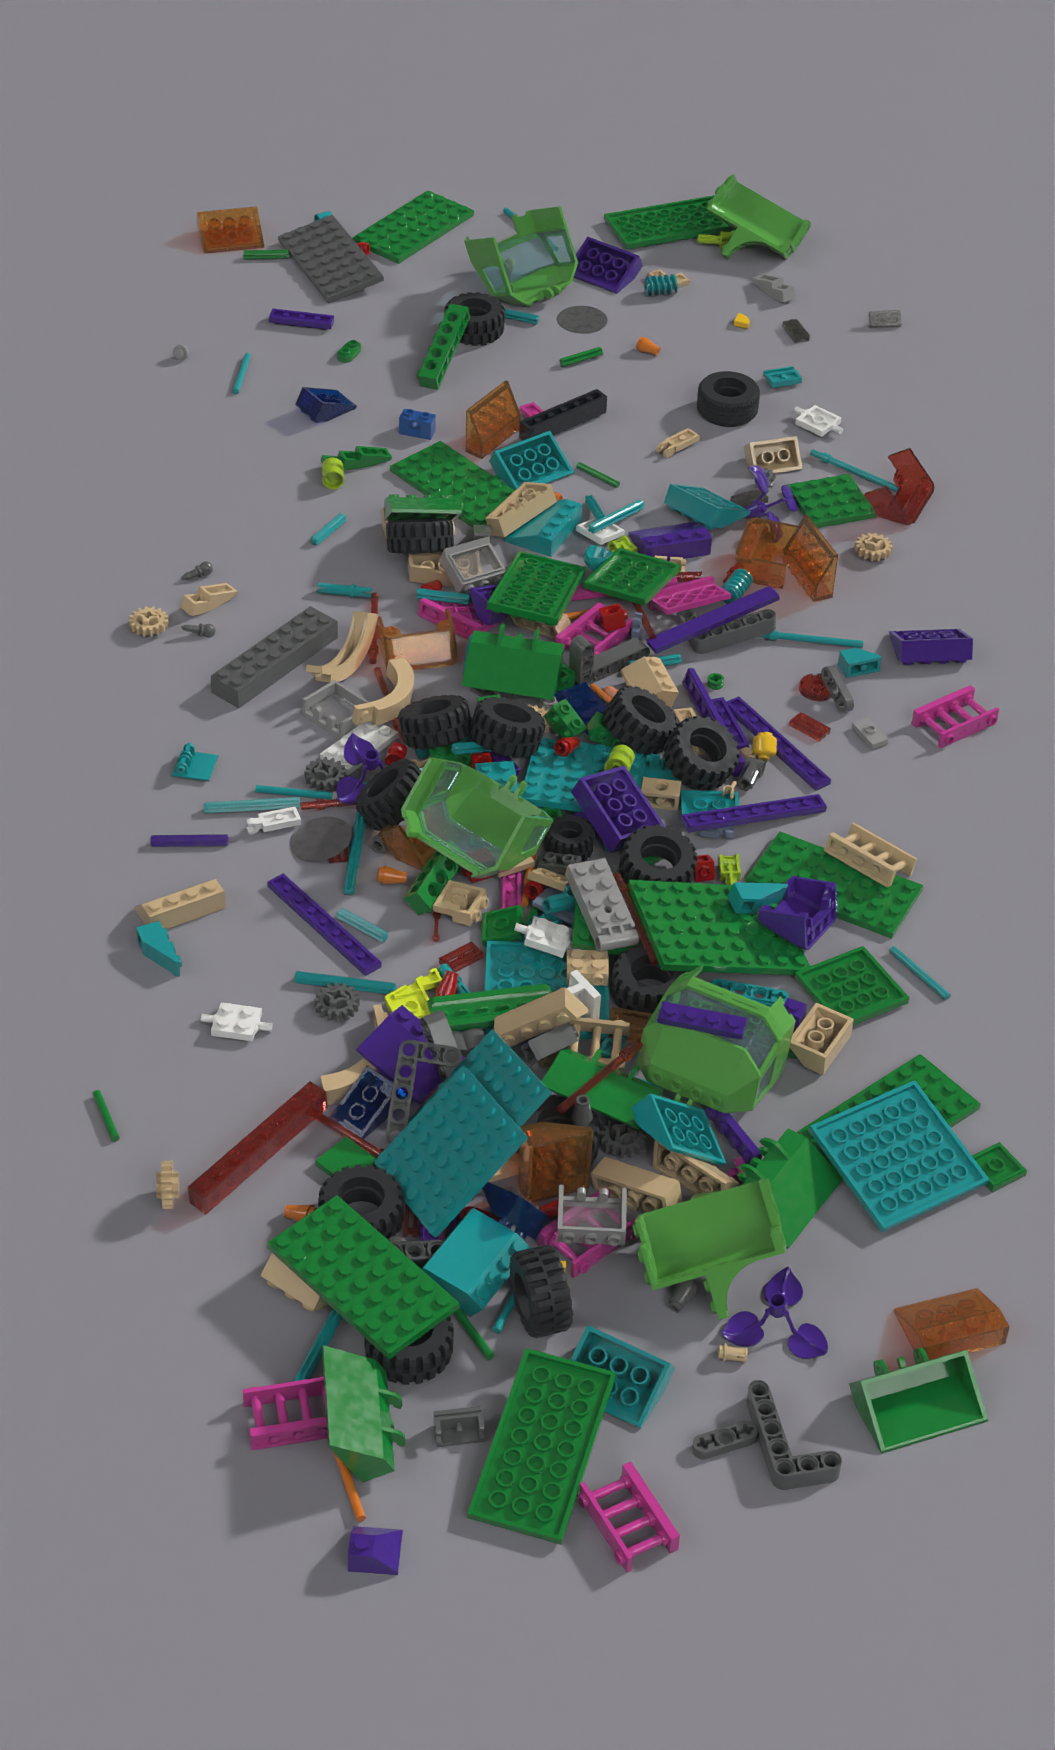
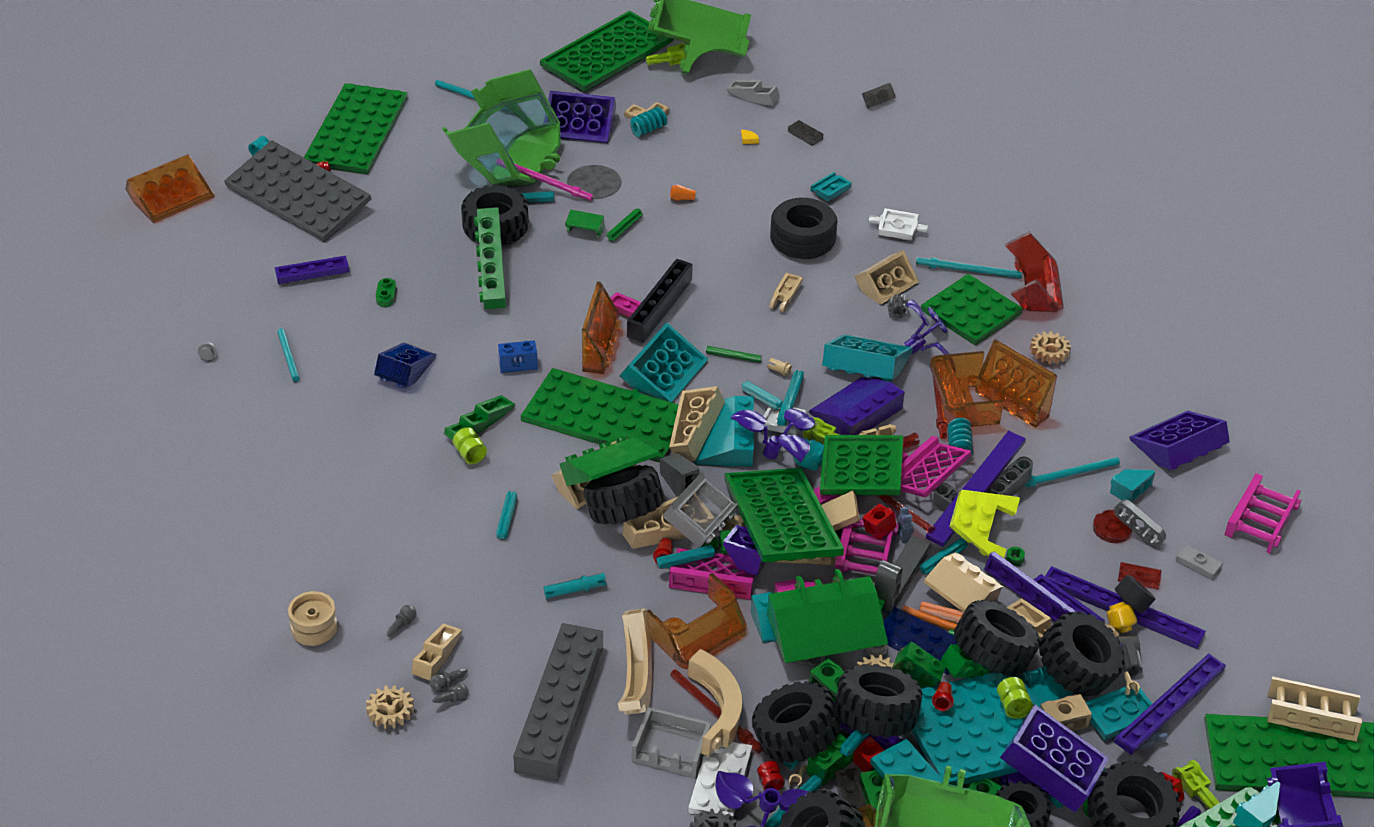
camera: 25 degrees left, 0 degrees up
(131, 548) = (312, 618): none -> tan wheel
(196, 618) = (440, 681): none -> dark grey bar
(266, 254) = (223, 205): green axle -> none
(374, 649) = (656, 650): clear red bar -> none
(548, 344) = (585, 221): none -> green hinge
(557, 320) = (575, 191): none -> dark pink bar
(578, 542) = (793, 444): none -> dark purple plant
(587, 603) = (842, 510): none -> tan tile
(630, 495) = (781, 367): none -> tan pin
(696, 636) = (975, 514): none -> neon yellow wing
(746, 498) = (899, 332): clear smoke plate -> none
(784, 731) = (1134, 594): none -> black tyre

